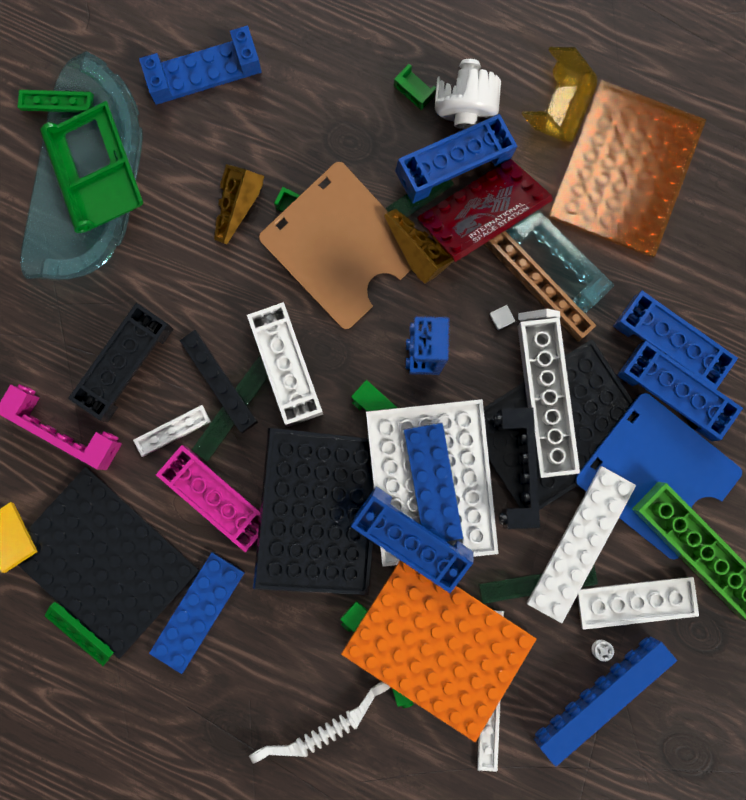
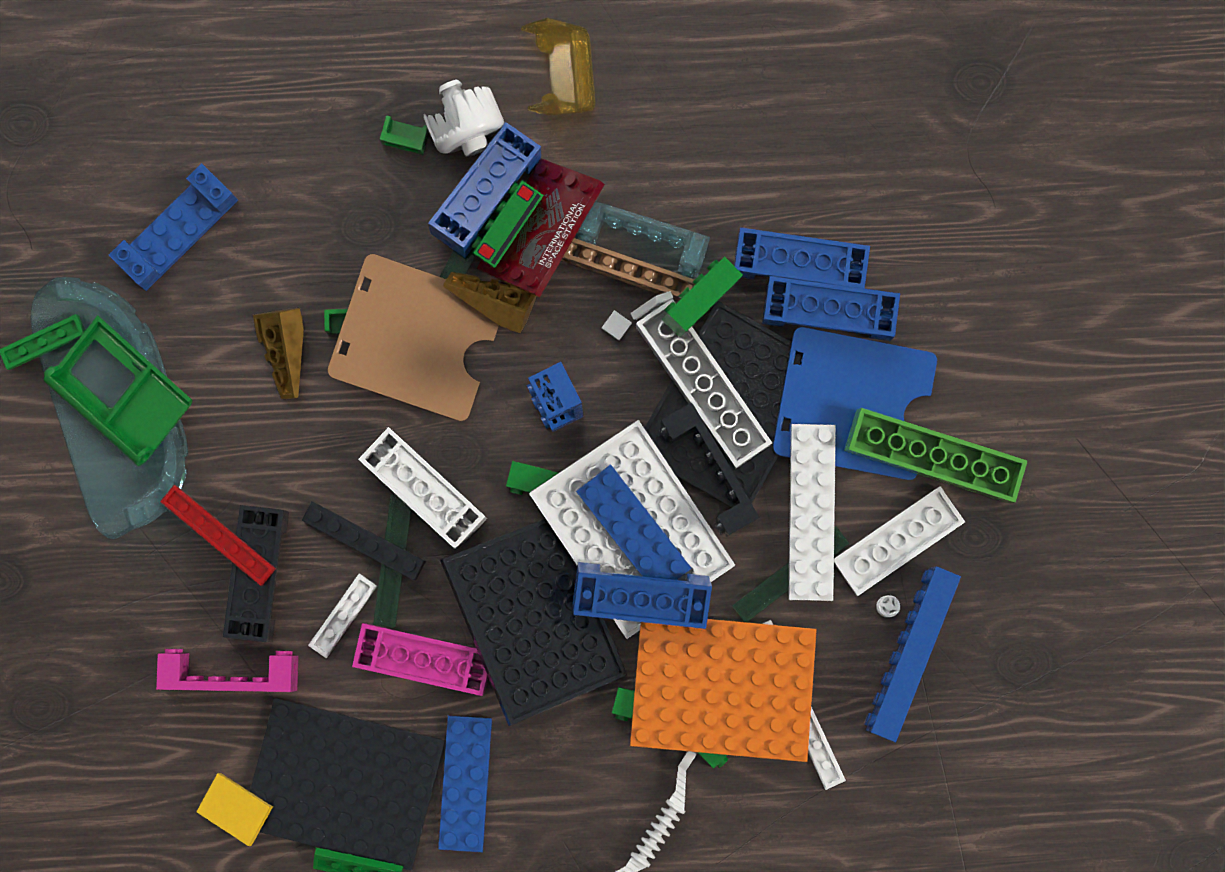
camera: 25 degrees left, 0 degrees up
(106, 317) = (218, 535): none -> red tile
(459, 193) = (507, 223): none -> green brick
(583, 328) = (701, 297): none -> green brick
(627, 168) = (664, 107): clear orange plate -> none

